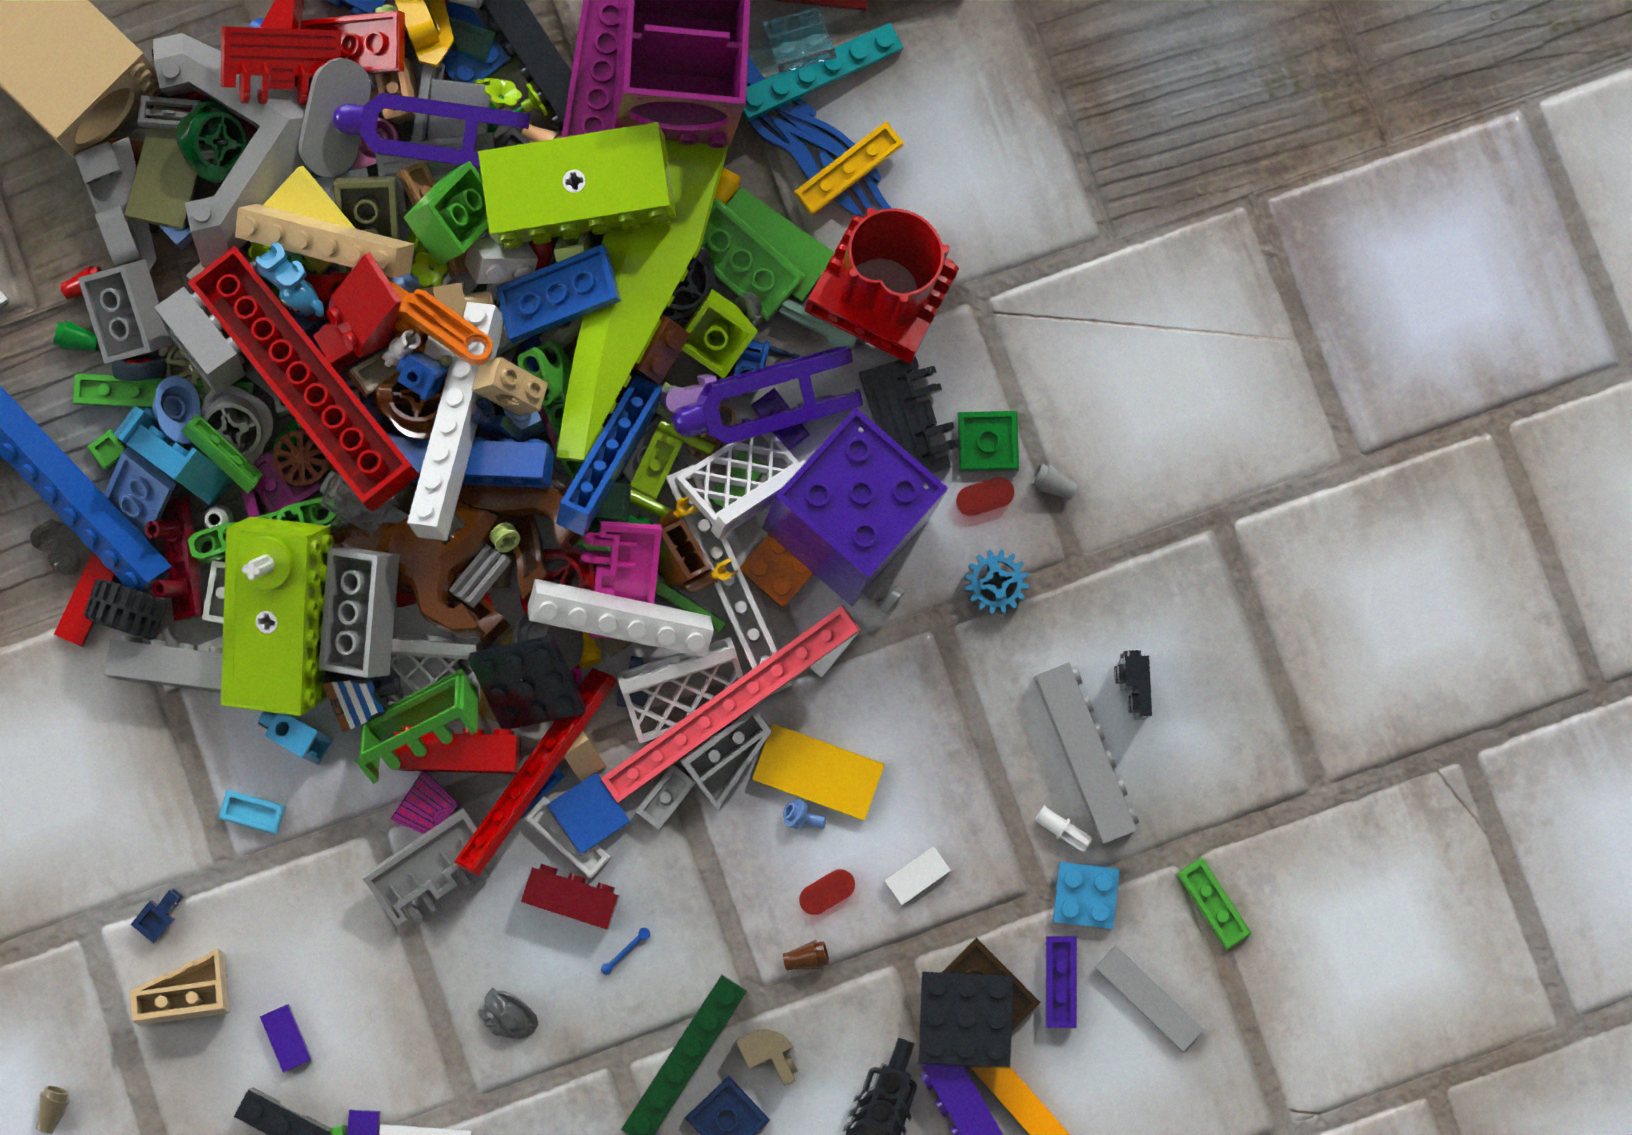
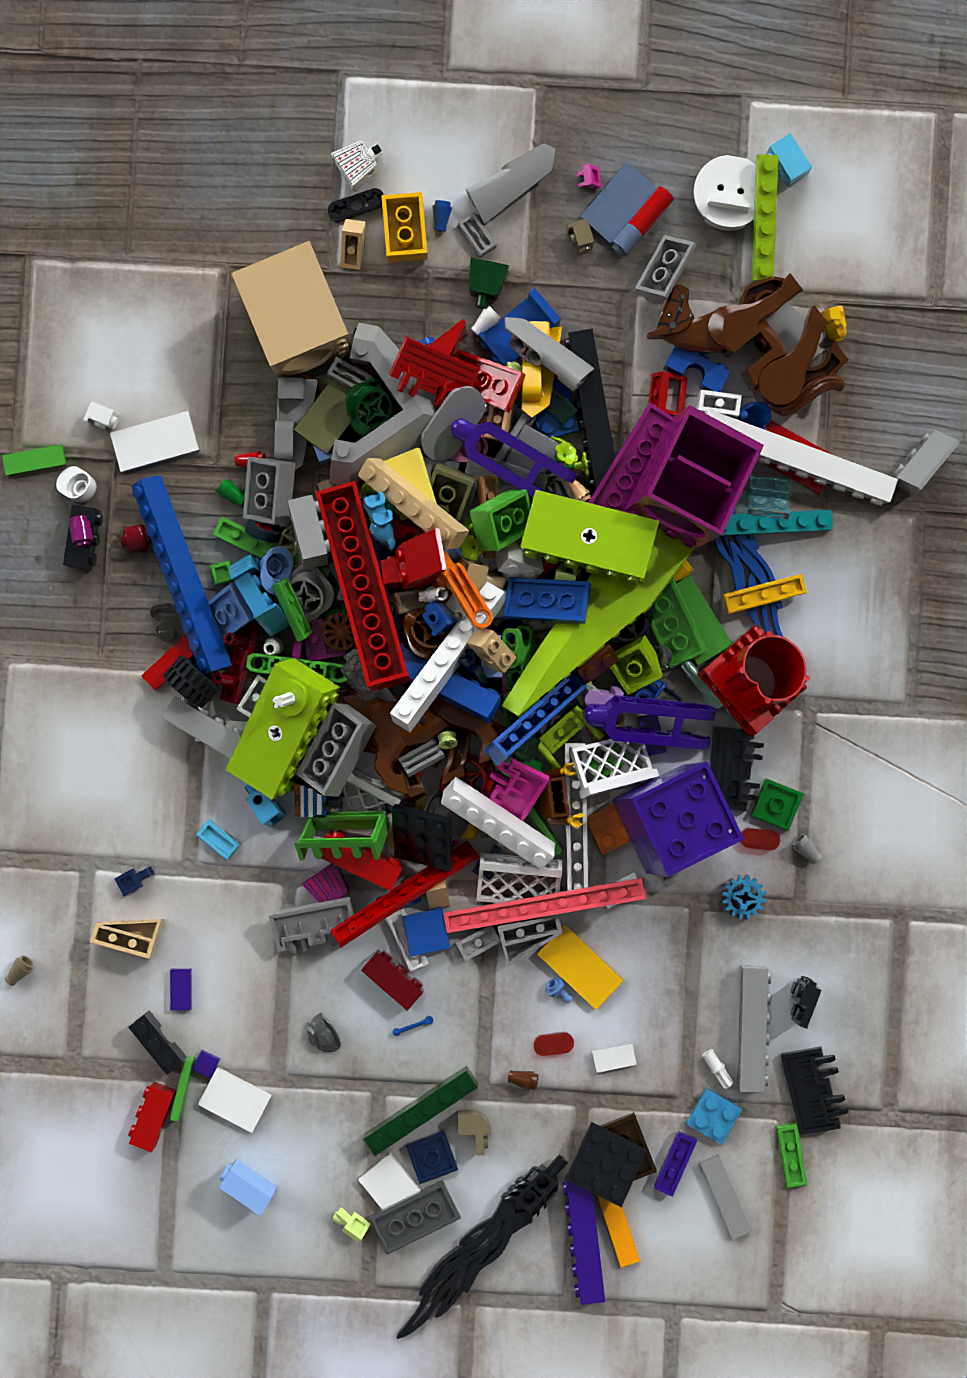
camera: 35 degrees right, 5 degrees up
(1198, 803) = (811, 1093): none -> black hinge

